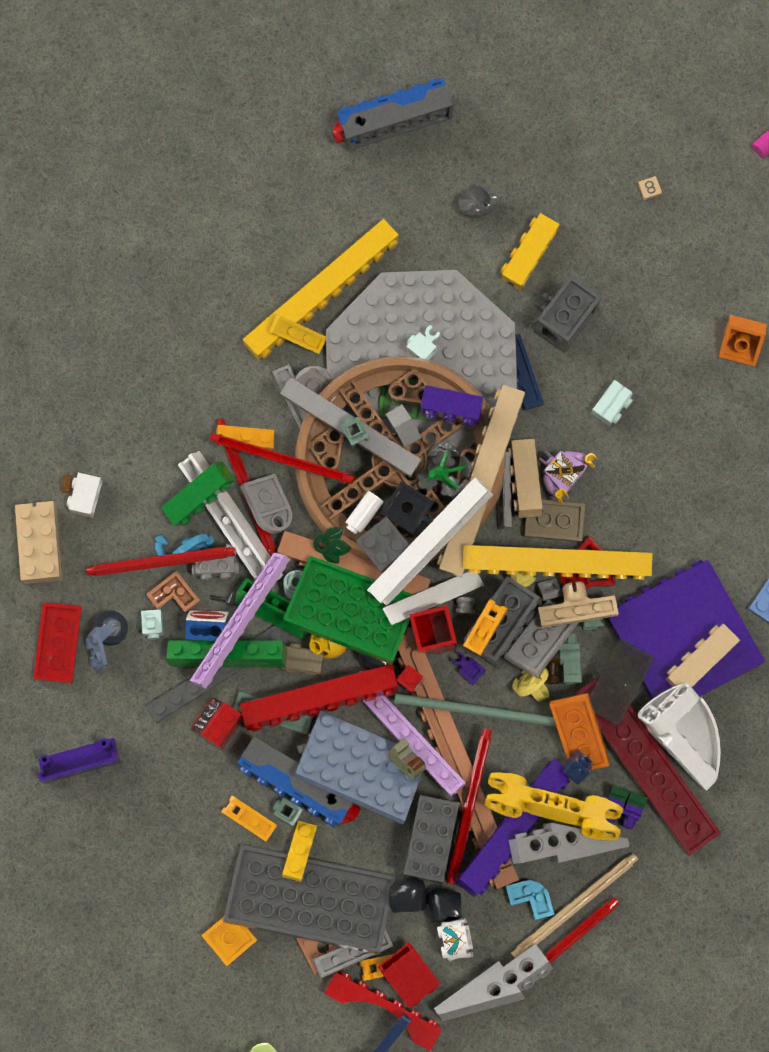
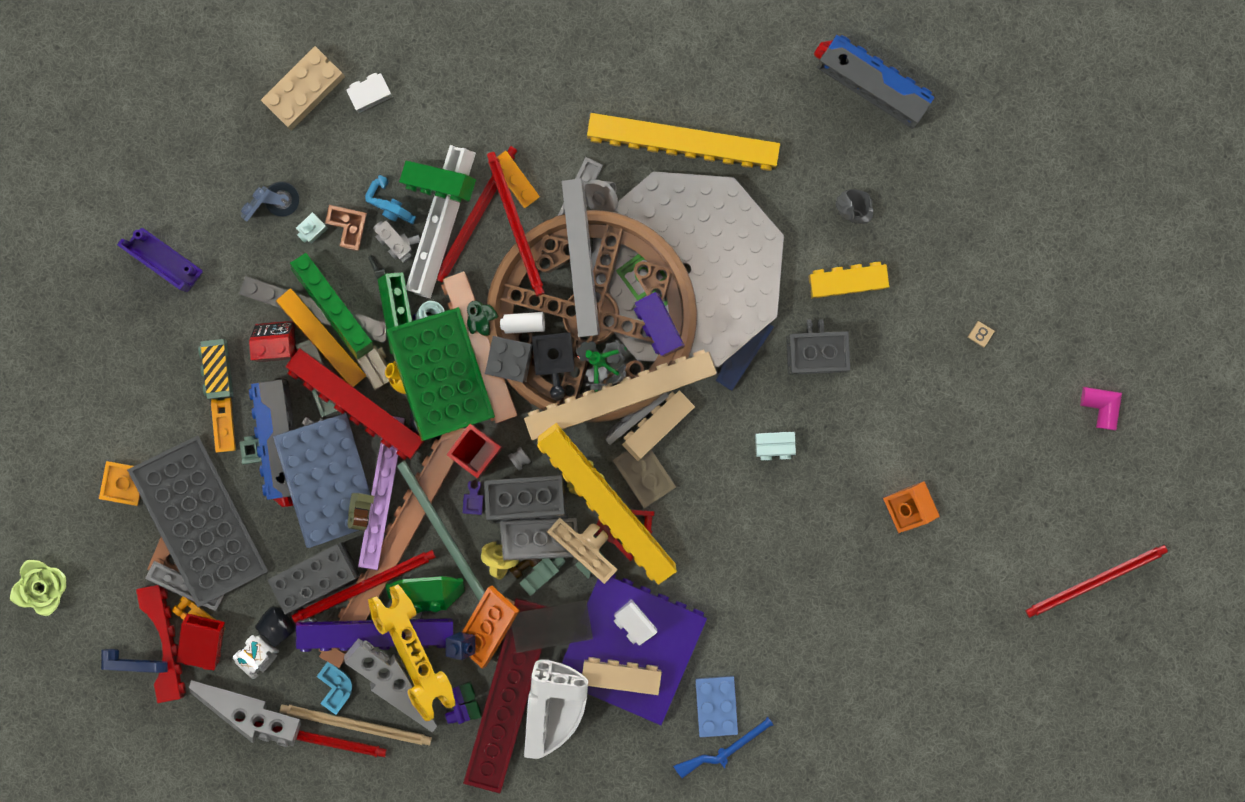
camera: 50 degrees right, 10 degrees up
(57, 643) = (238, 168): red plate -> none
(66, 483) = (367, 70): clear orange tile -> none
(161, 561) = (363, 195): red piece -> none
(200, 788) = (216, 369): none -> brick
(205, 624) = (341, 272): blue piece -> none
(239, 620) = (361, 296): lavender plate -> none
(247, 684) = (320, 338): none -> light orange tile
(268, 503) = (478, 239): light grey plate -> none
(297, 334) = (629, 152): yellow plate -> none
(299, 851) = (228, 483): yellow plate -> none
(358, 437) = (576, 274): sand green window -> none
(403, 426) = (616, 298): light grey slope -> none
(407, 895) = (257, 594): black piece -> none
(410, 679) = (423, 463): red brick -> none
(423, 346) = (697, 259): light aqua brick -> none
(430, 541) = (538, 395): white tile -> none
(432, 597) = (496, 425): white sticker -> none
(485, 627) = (505, 491): light orange plate -> none
(516, 757) = (430, 592): none -> green wedge
(549, 589) = (584, 514): light grey plate -> none
(564, 471) = (688, 450): torso -> none
(668, 613) = (635, 623): none -> white slope

